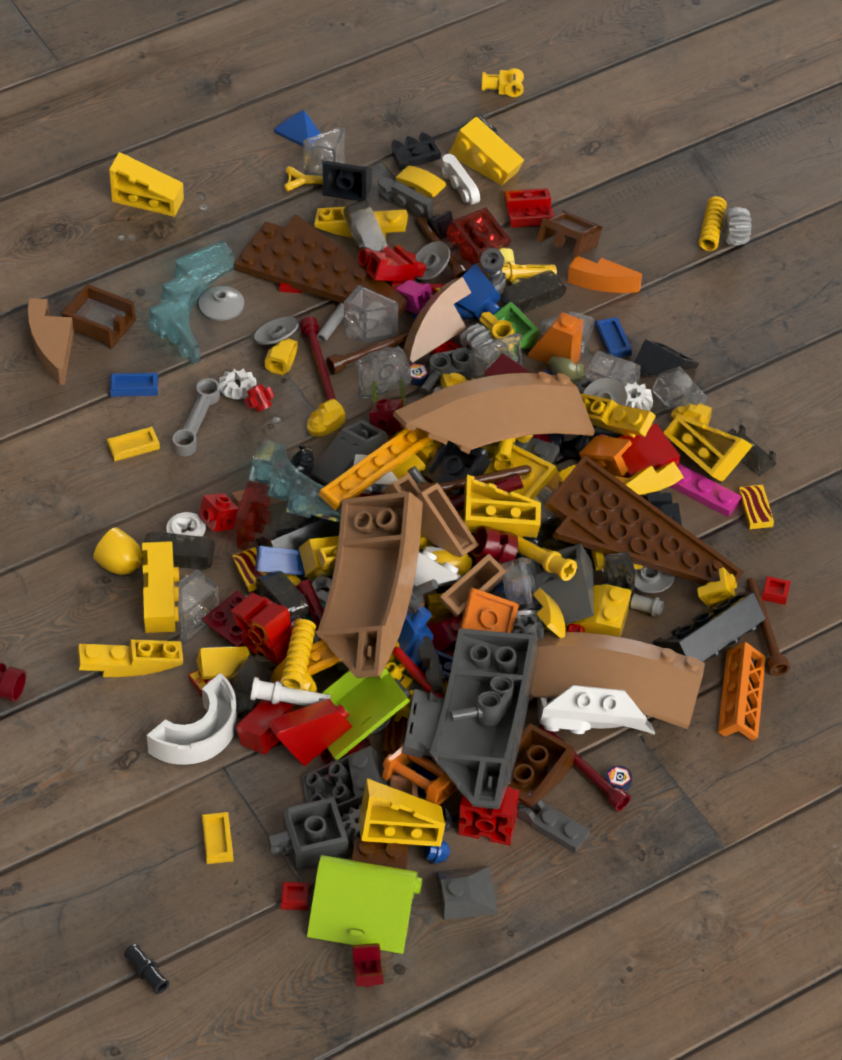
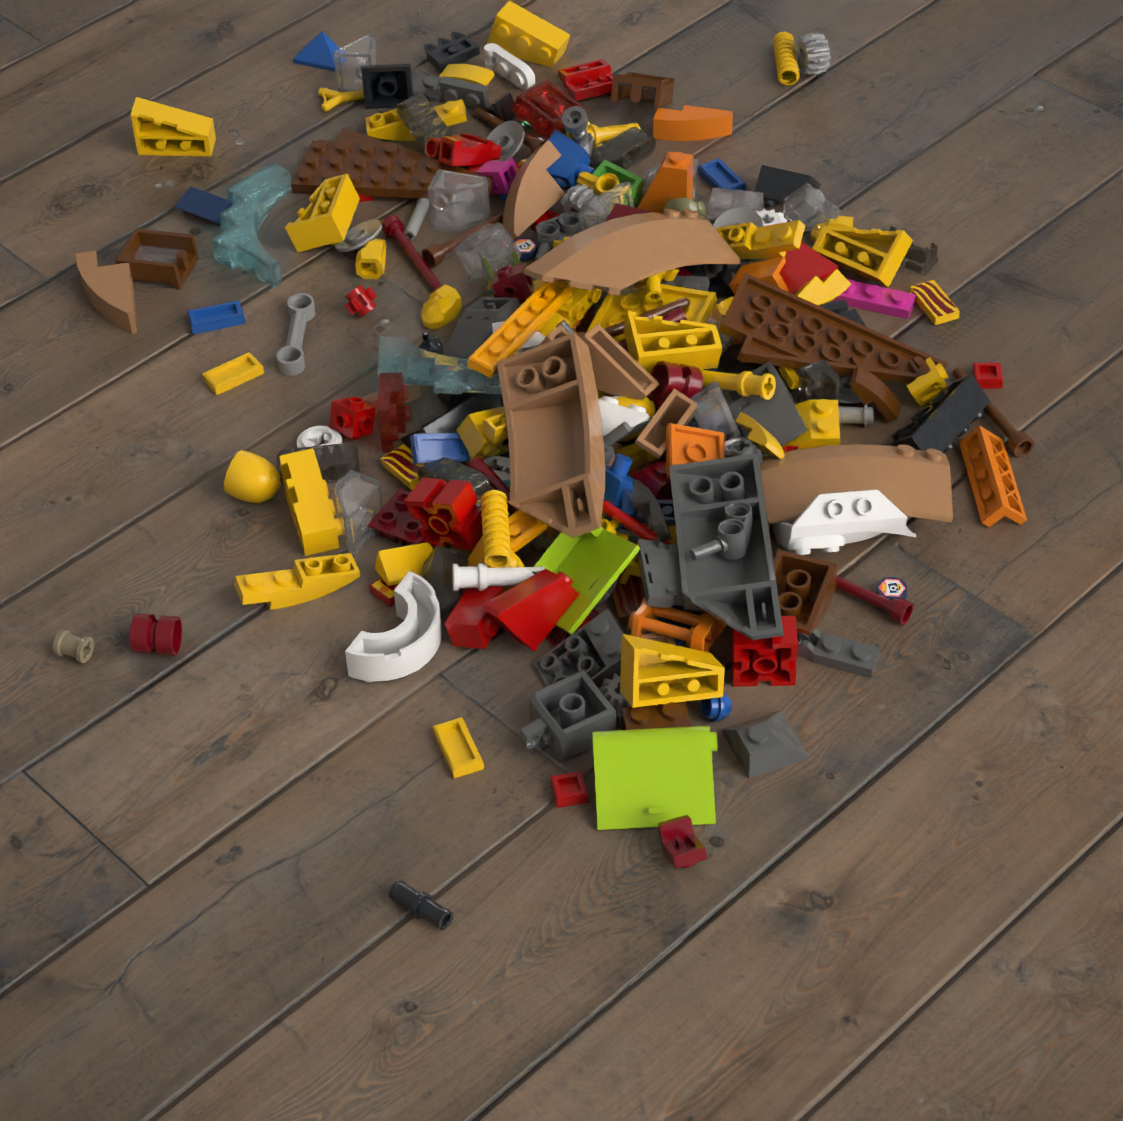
camera: 10 degrees left, 5 degrees down
(152, 269) = (203, 204): none -> dark blue slope
(221, 303) = (275, 224): light grey dish -> none
(229, 387) = (326, 300): white gear -> none
(254, 305) = (327, 215): none -> yellow wedge
(452, 464) = (605, 309): black plate -> none
(666, 585) = (872, 389): none -> reddish brown slope

